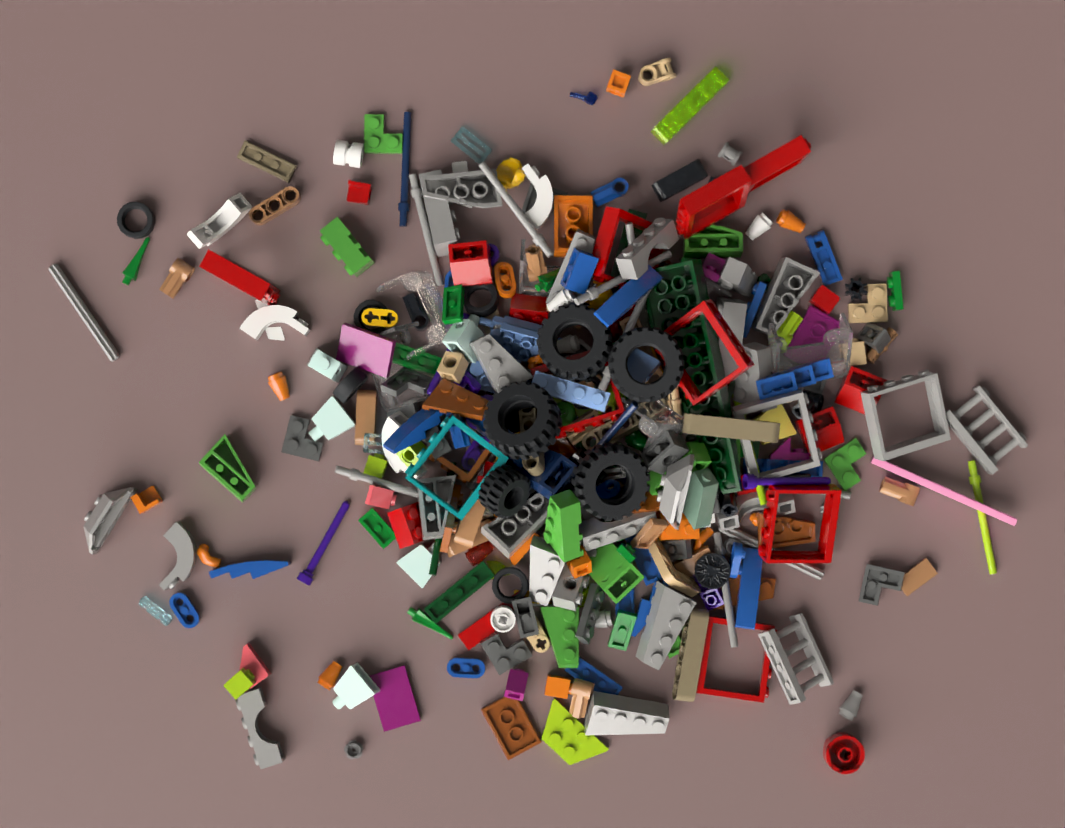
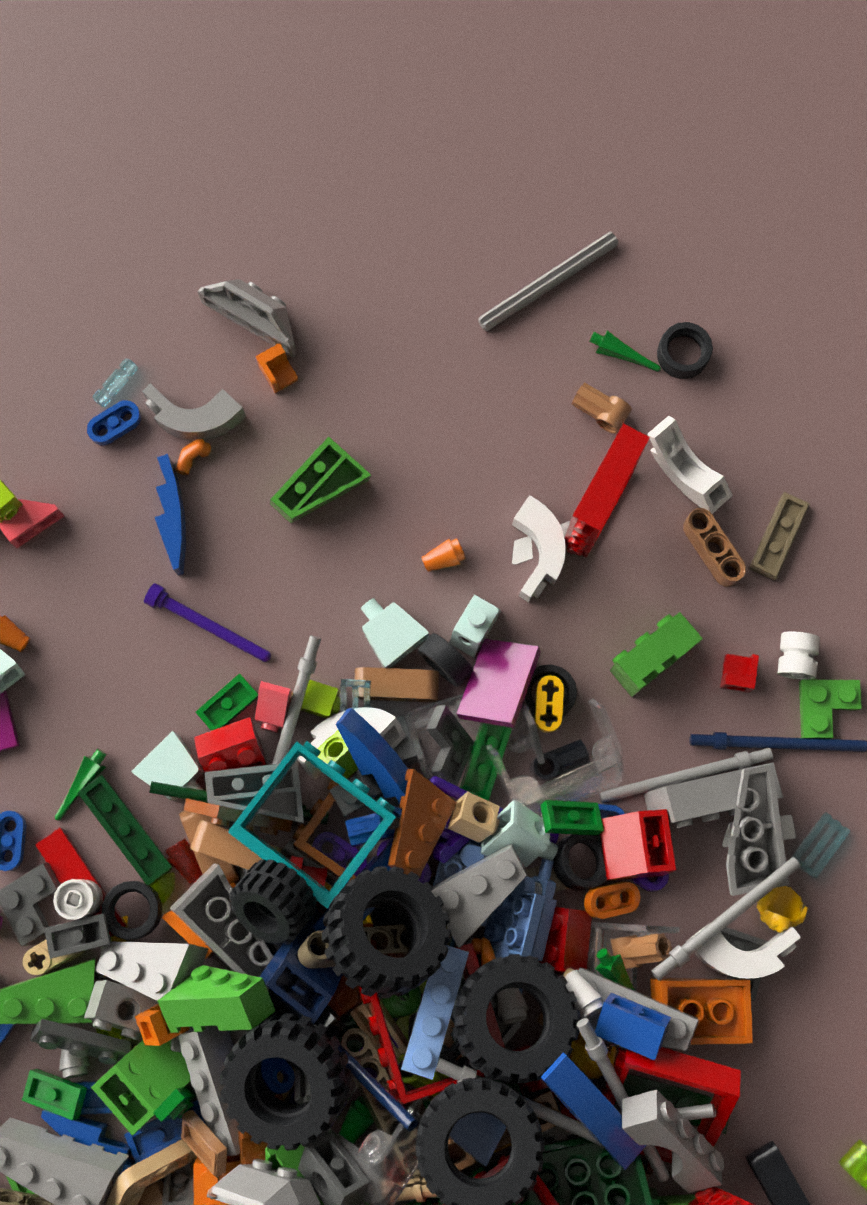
camera: 90 degrees right, 10 degrees down
(296, 442) = (359, 581): dark grey plate -> none
(608, 193) = (757, 1069): blue piece -> none

